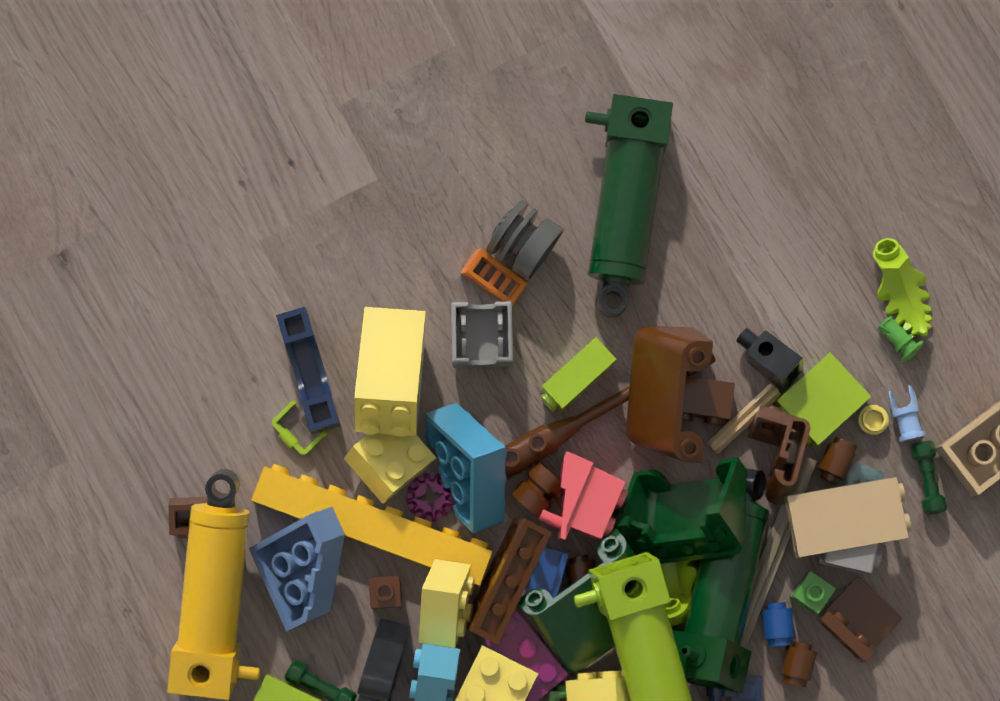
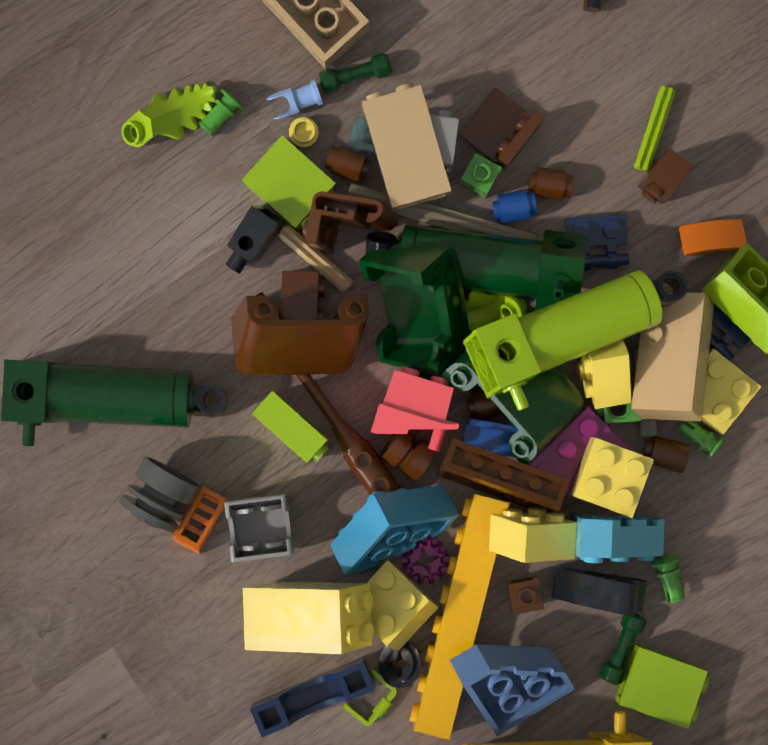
camera: 95 degrees left, 5 degrees up
(318, 455) = (396, 676): none -> black gear

